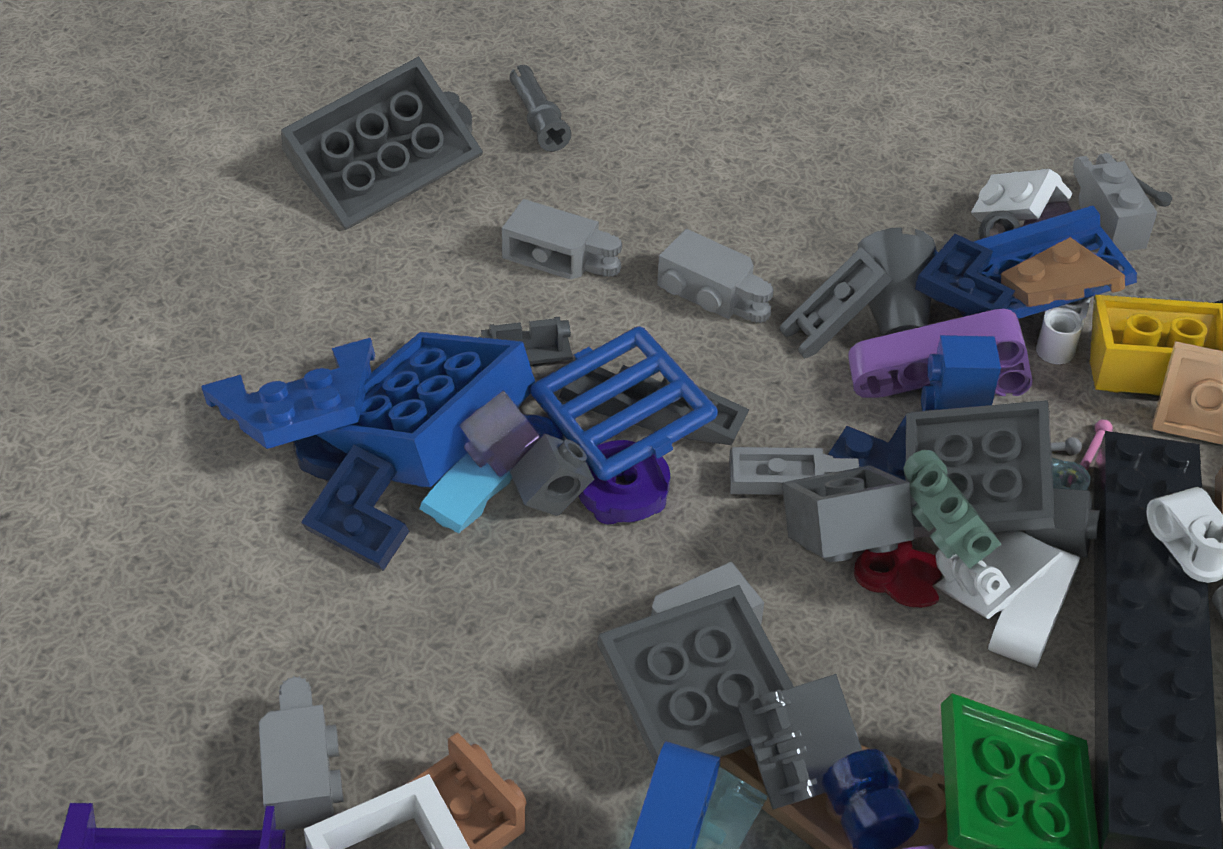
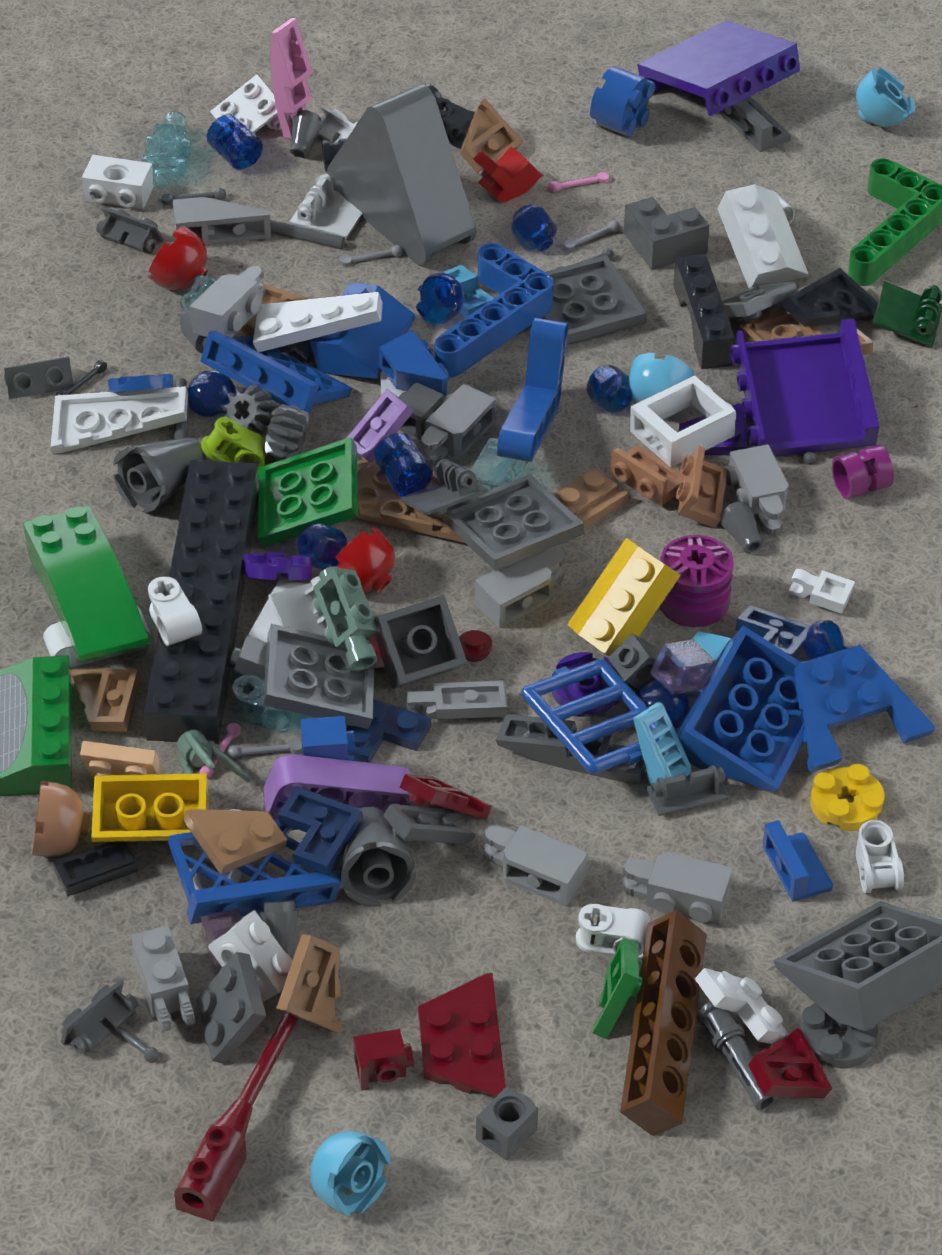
camera: 175 degrees right, 0 degrees up
(126, 763) = (863, 471): none -> magenta wheel
(262, 577) = (825, 591): none -> white plate
(299, 480) = (823, 639): none -> clear blue hair
(320, 314) = (852, 781): none -> yellow plate
(335, 252) = (878, 857): none -> white piece
(347, 697) = (741, 525): none -> dark grey cone
(392, 748) = (701, 489): none -> nougat bracket
(424, 264) = (795, 862): none -> blue panel
(447, 581) = (704, 587): none -> magenta wheel
(495, 79) = (790, 1069): none -> dark red wing
(525, 134) = (744, 998): none -> white plate
(554, 354) = (674, 759): none -> medium azure slope
(562, 532) = (623, 598): none -> yellow slope
(573, 783) = (591, 496): none -> medium nougat plate
(604, 123) = (664, 1024): none -> reddish brown brick
(637, 209) = (611, 927): none -> white piece
(643, 149) = (620, 984): none -> green wing
(765, 552) = (476, 645): none -> dark red plate
(767, 71) = (503, 1136): none -> dark grey brick
(802, 148) = (463, 1038): none -> dark red wing
(820, 342) = (430, 790): none -> dark red wing
(885, 127) = (381, 1057): none -> dark red brick
(917, 42) = (349, 1162): none -> medium azure cylinder
(923, 654) = (370, 558): none -> red cylinder
(962, 146) = (313, 984): none -> medium nougat wing
(992, 686) = (322, 544): none -> clear blue head
(1028, 78) = (224, 1144): none -> dark red bar
(1039, 153) = (230, 1007): none -> dark grey plate
(1081, 658) = (276, 565): none -> dark purple plate
(1121, 423) = (199, 752): none -> sand green plant
(1175, 184) = (86, 1026): none -> dark grey hinge

